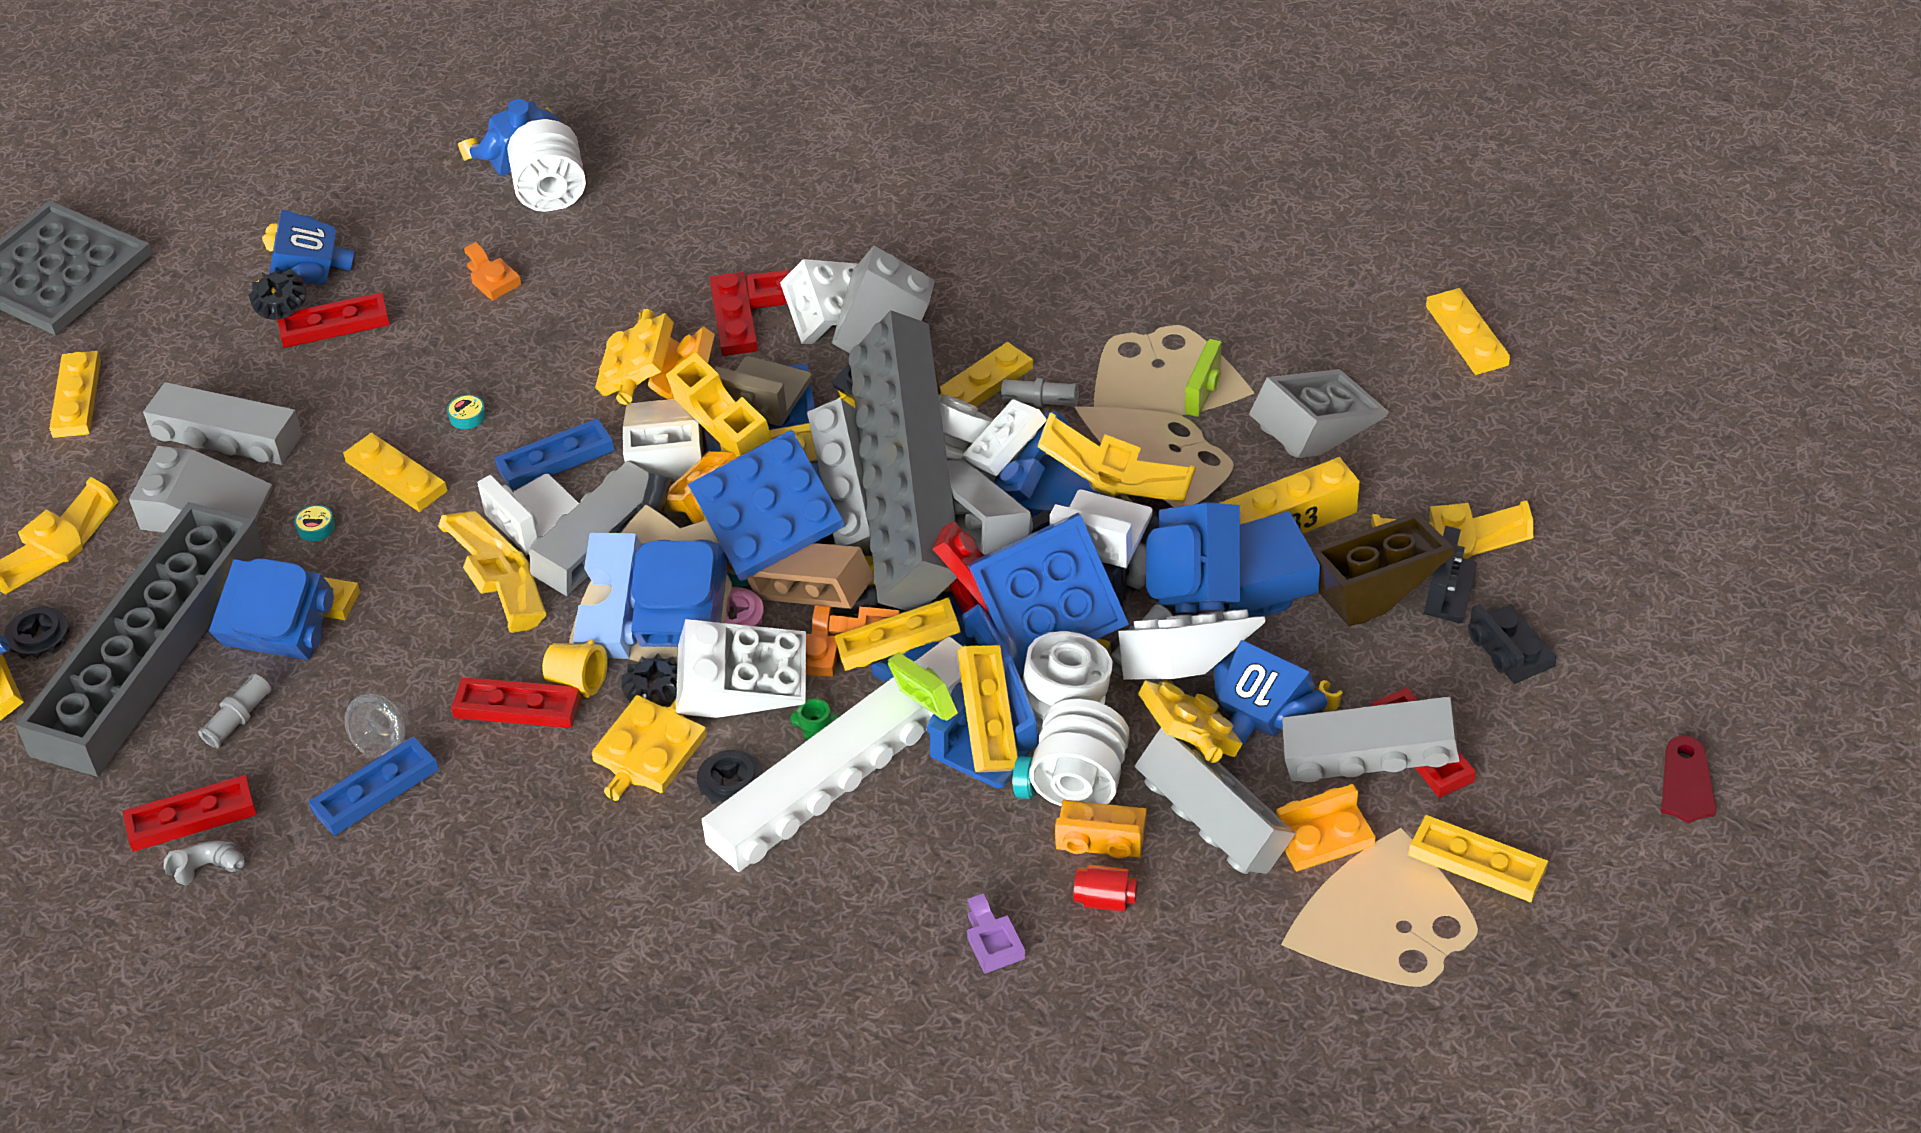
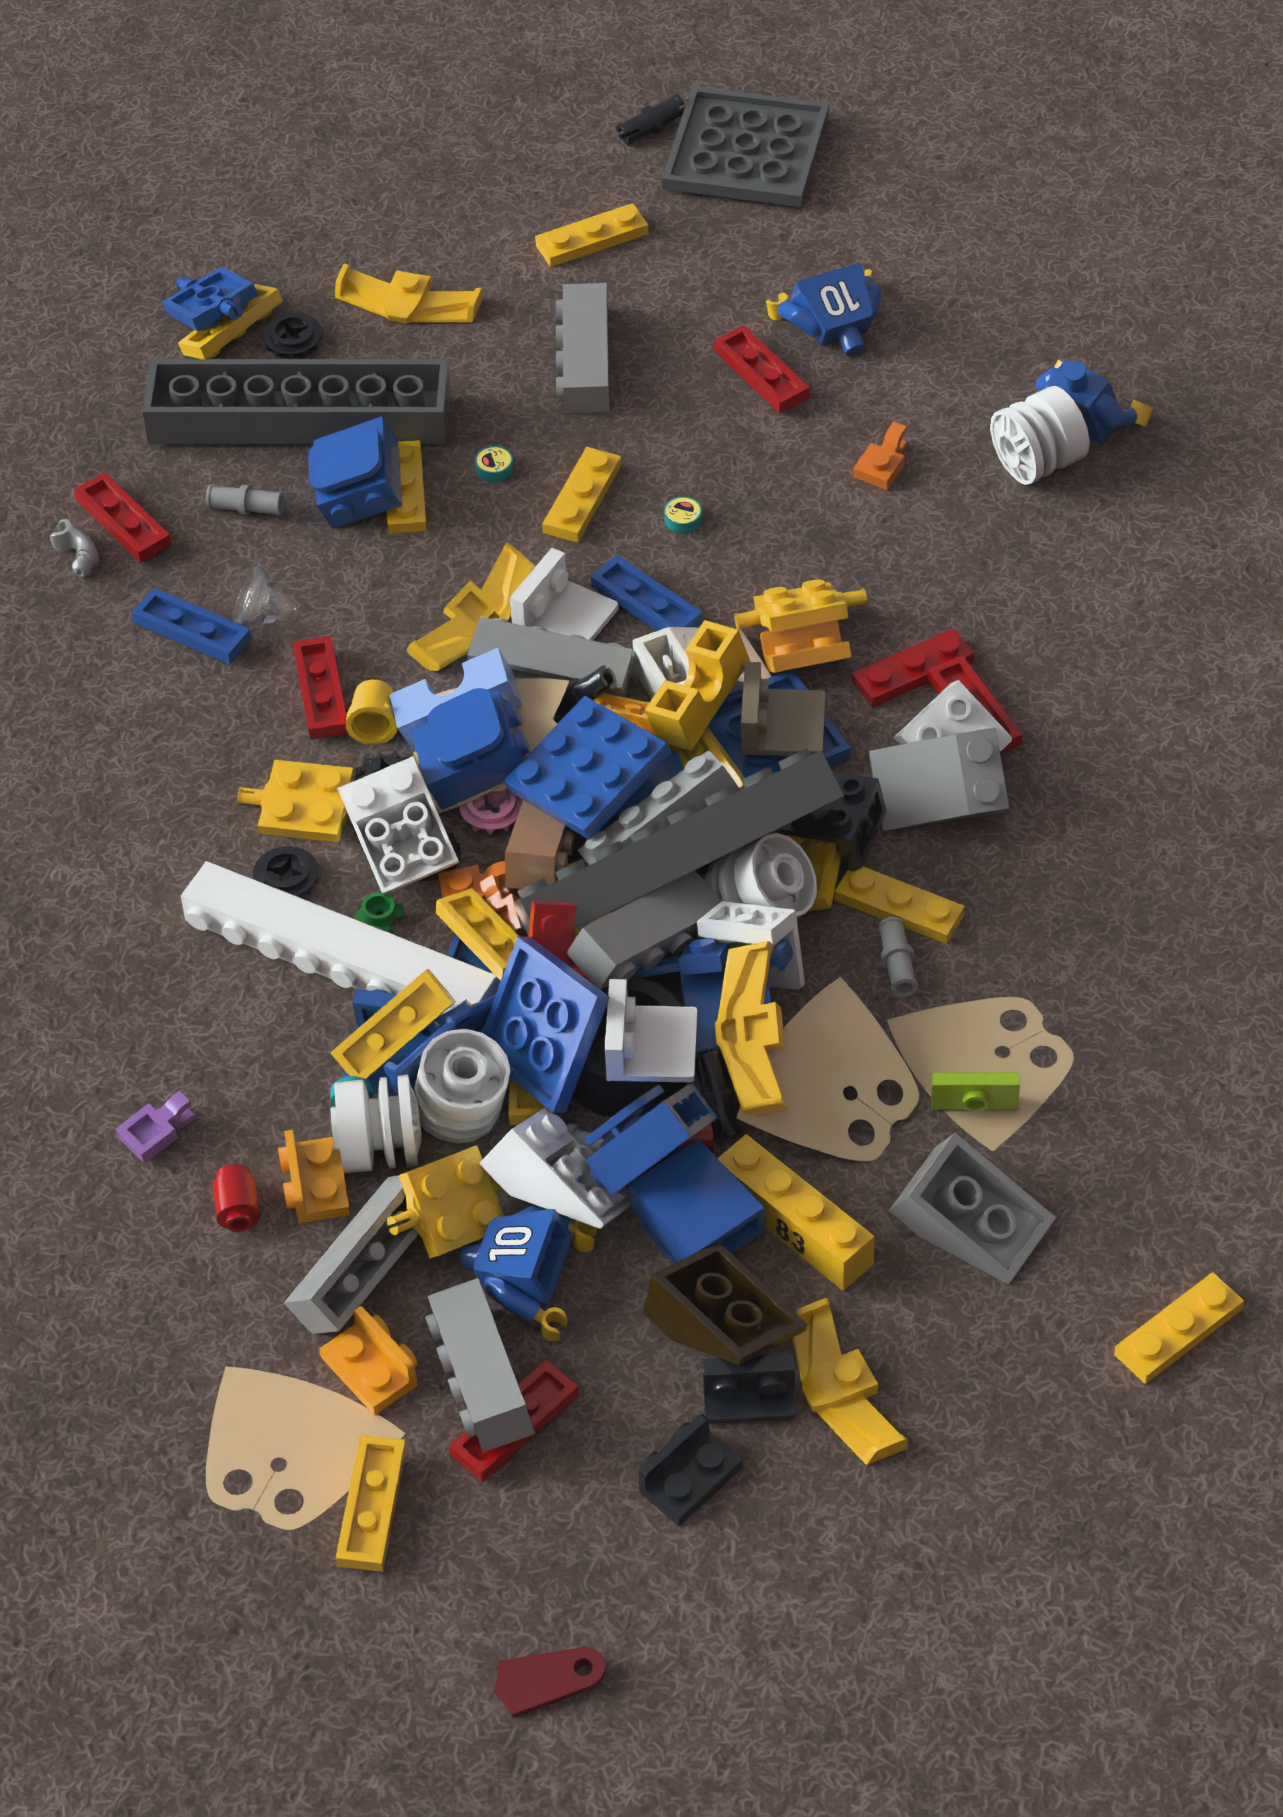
camera: 70 degrees right, 5 degrees up
(187, 476) = (487, 369): light grey slope -> none
(271, 306) = (765, 321): black gear -> none
(922, 686) = (392, 963): lime plate -> none

